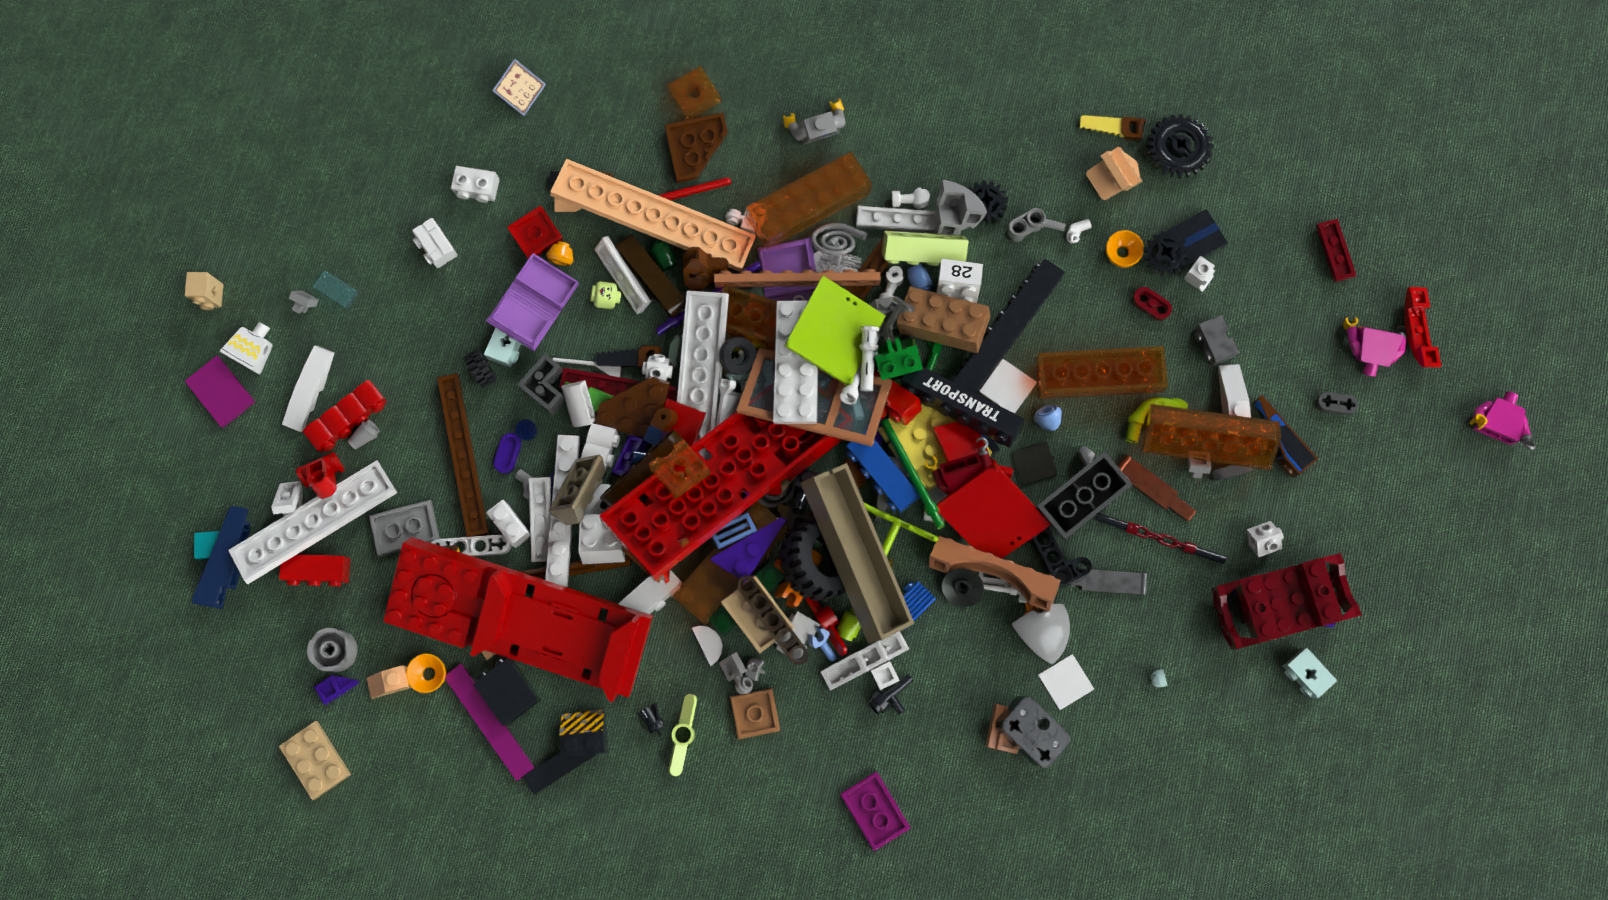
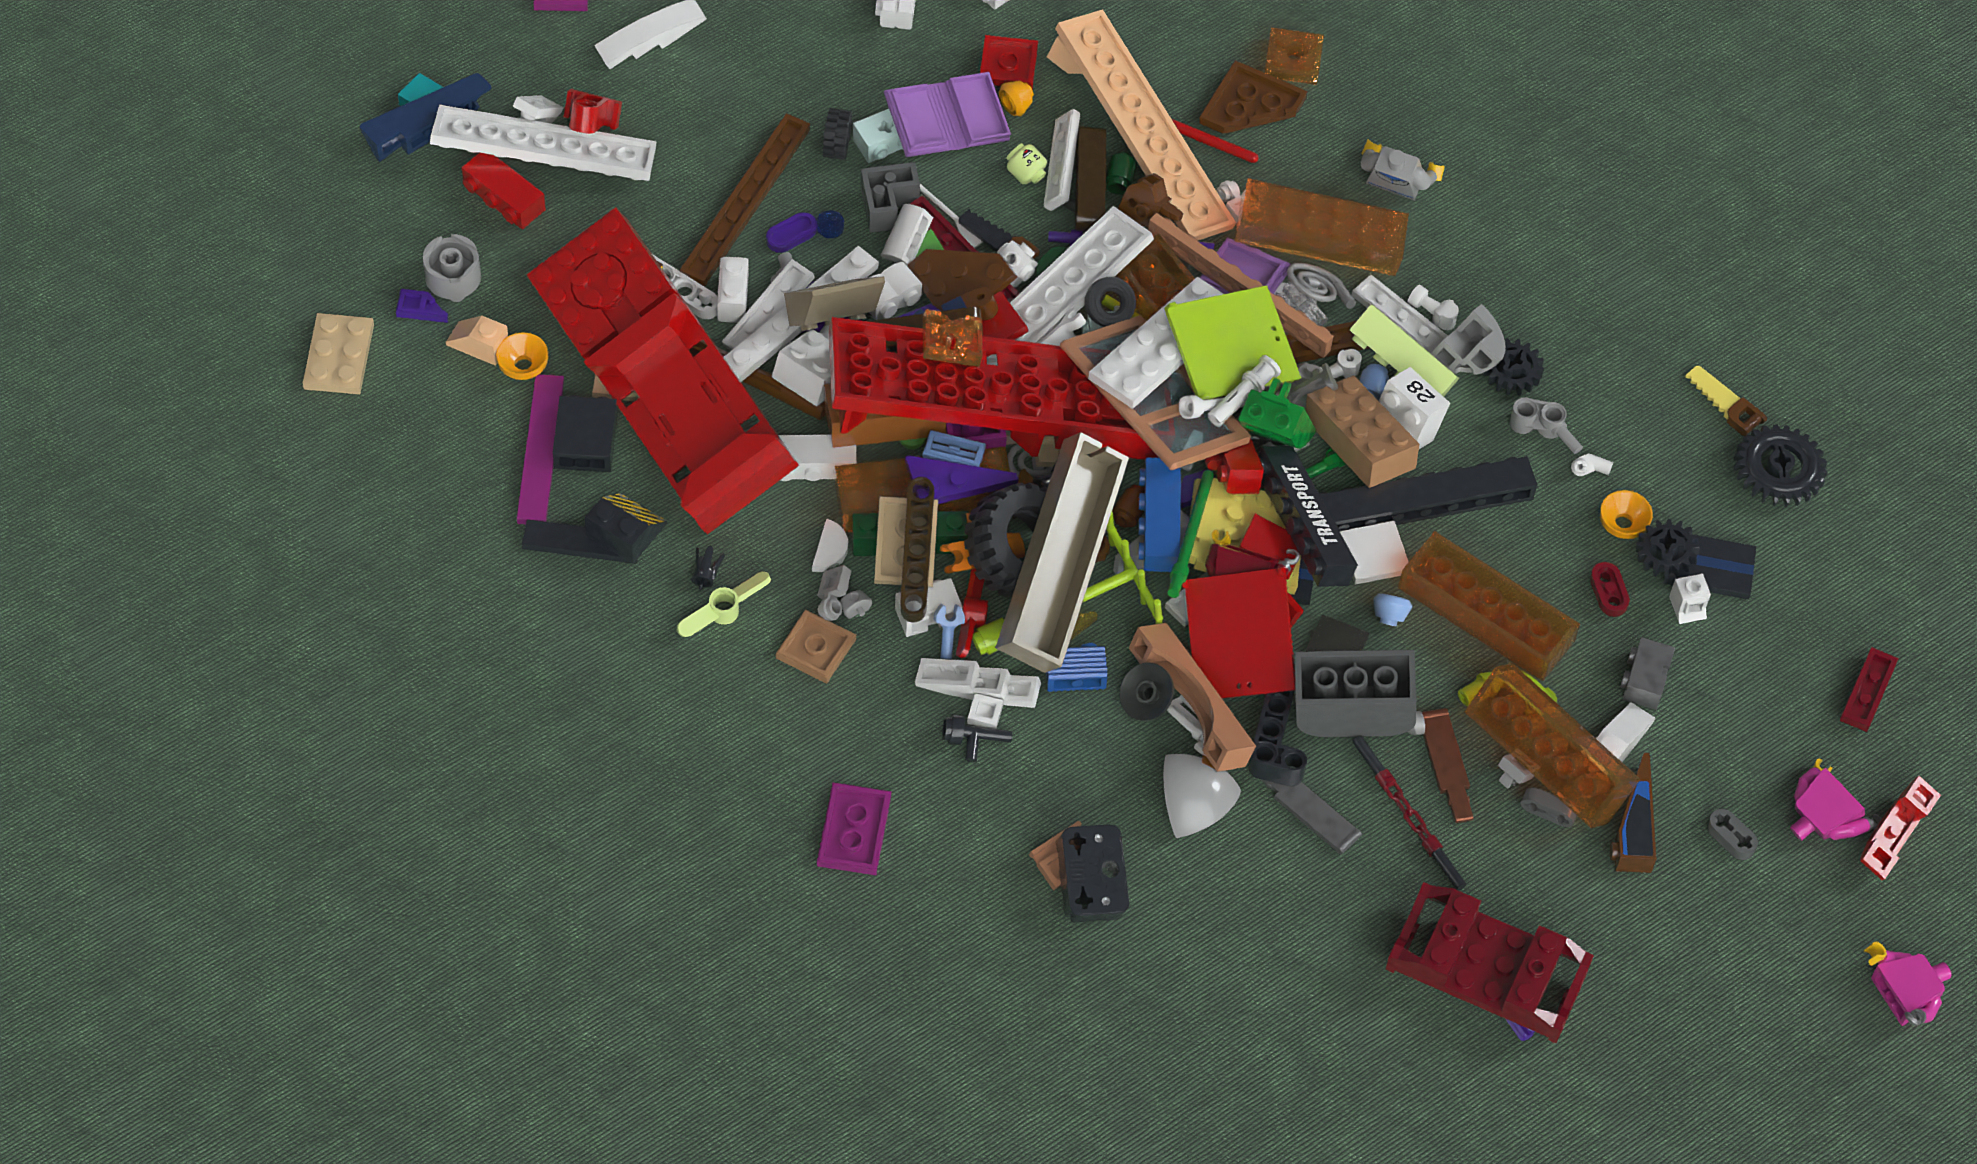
camera: 30 degrees right, 20 degrees down
(344, 416) = (666, 81): red brick -> none
(365, 433) = (666, 111): light grey cone -> none
(400, 524) = (647, 220): light grey tile -> none
(1066, 682) = (1175, 869): white sticker -> none
(1114, 173) = (1683, 438): light nougat piece -> none
(1158, 678) = (1280, 939): light aqua hinge -> none
(1265, 538) = (1525, 893): white brick -> none
(1320, 677) = (1458, 1074): light aqua brick -> none

